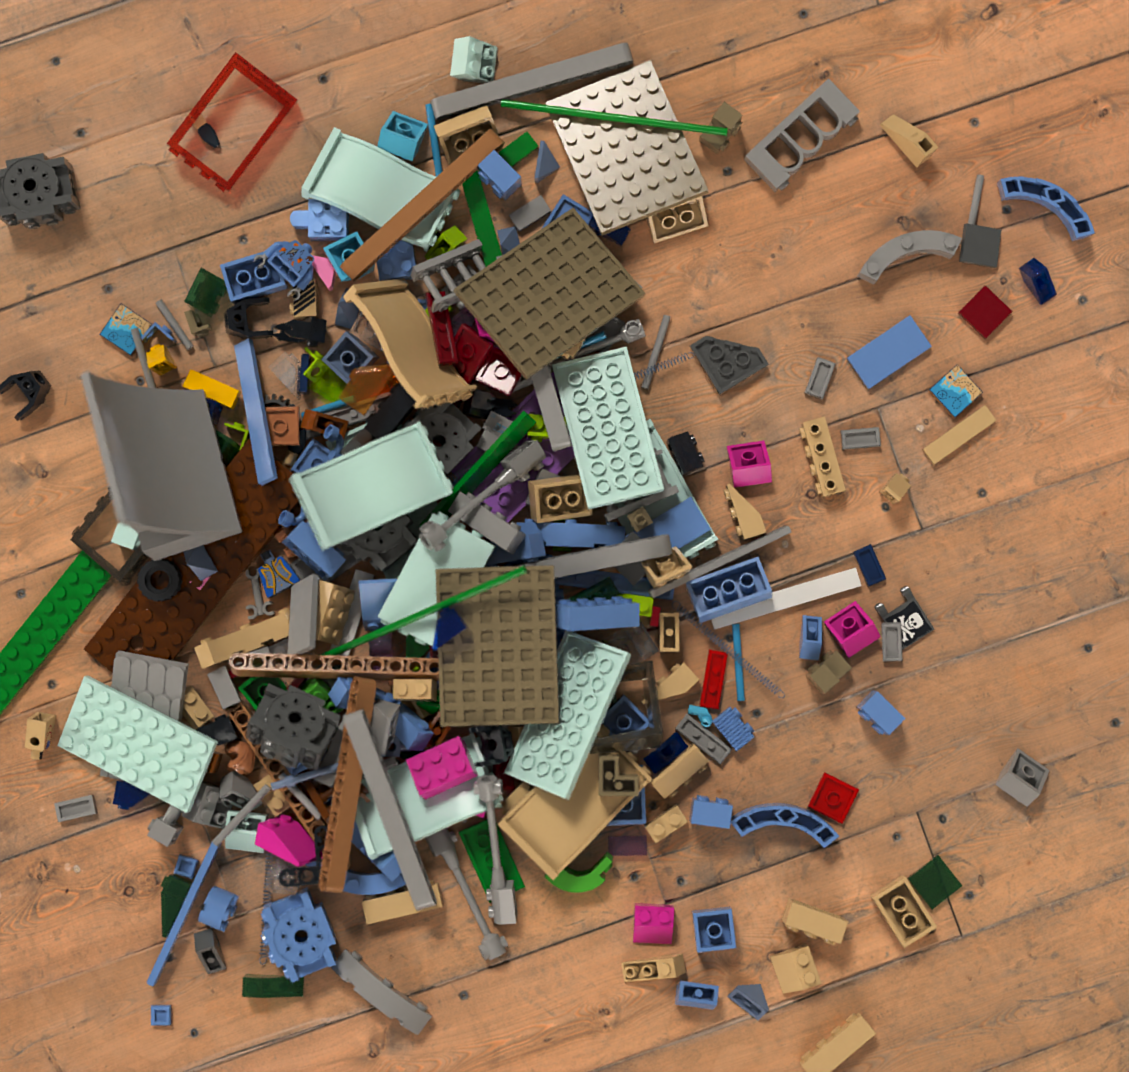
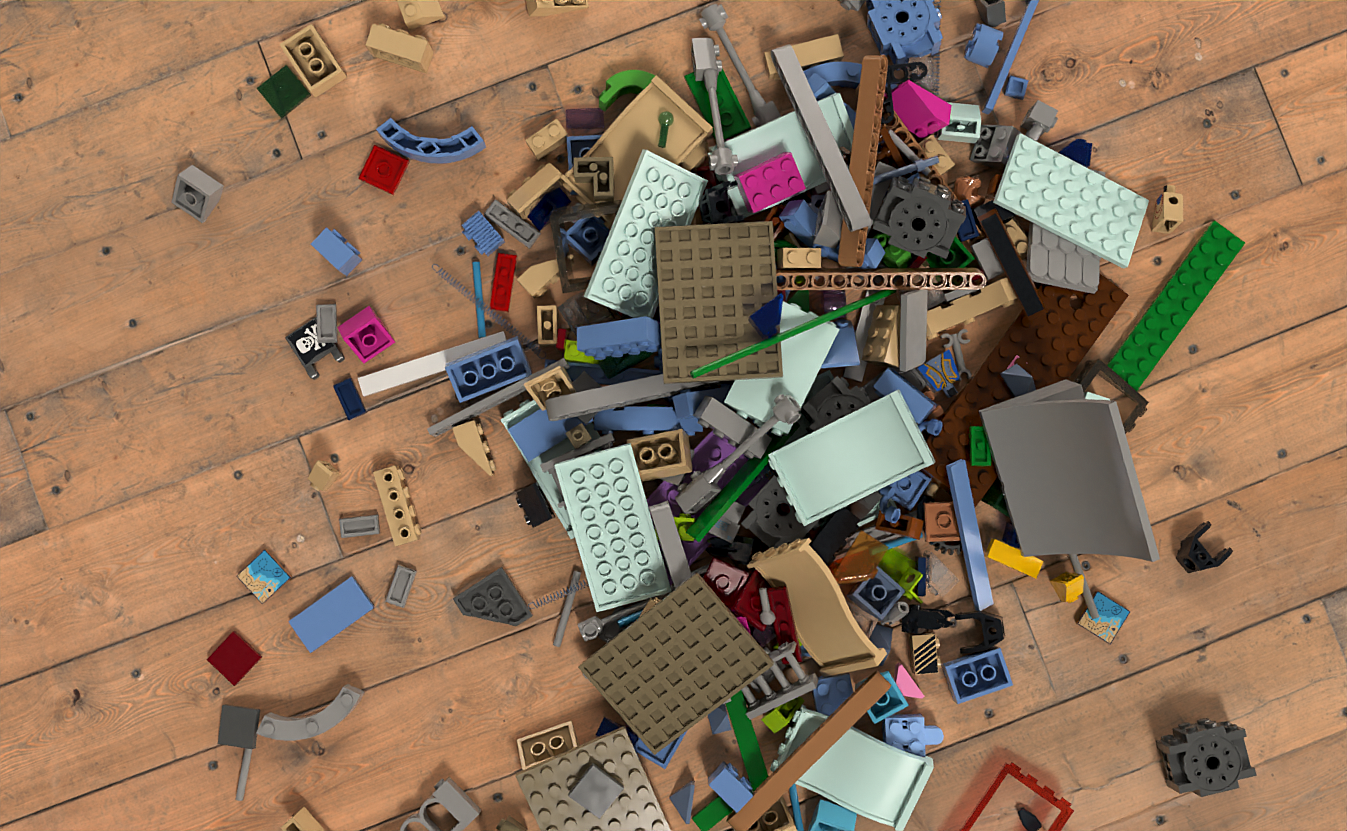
camera: 170 degrees right, 0 degrees up
(75, 808) = (1127, 140): light grey tile -> none
(146, 587) = (1068, 352): black tyre -> none
(150, 332) = (1076, 617): medium blue bracket -> none
(172, 898) = (1028, 55): clear green slope -> none
(174, 324) = (1054, 623): light grey bar -> none
(194, 322) = (1035, 626): dark tan bracket -> none
(200, 678) = (1012, 265): none -> black tile
(206, 293) = (1025, 656): clear green slope -> none
(237, 790) = (968, 159): light grey slope -> none
(239, 427) = (984, 520): lime bracket -> none
(241, 719) = (968, 228): none -> dark blue tile
(241, 815) = (965, 134): light grey bar -> none
(242, 493) = (979, 449): none -> green plate
(292, 262) = (939, 689): medium blue torso -> none
(330, 338) = (897, 612): none -> light grey bar
(458, 337) = (767, 616): none -> light grey bar
(530, 213) = (698, 748): light grey tile -> none
(544, 834) = (665, 119): none -> clear green bar
(630, 174) = (596, 791): none -> tile
(653, 923) = (558, 45): dark pink slope -> none
(702, 713) = (513, 248): medium azure arm -> none
(711, 812) = (503, 150): medium blue brick -> none
(713, 929) = (498, 38): medium blue brick -> none
(749, 464) = (470, 497): dark pink slope -> none
(810, 637) = (407, 325): medium blue slope -> none
(828, 672) = (389, 291): dark tan brick -> none
(959, 434) = (260, 532): tan tile -> none
(1038, 280) = (180, 692): clear blue slope -> none
(1051, 197) = (164, 778): medium blue brick -> none

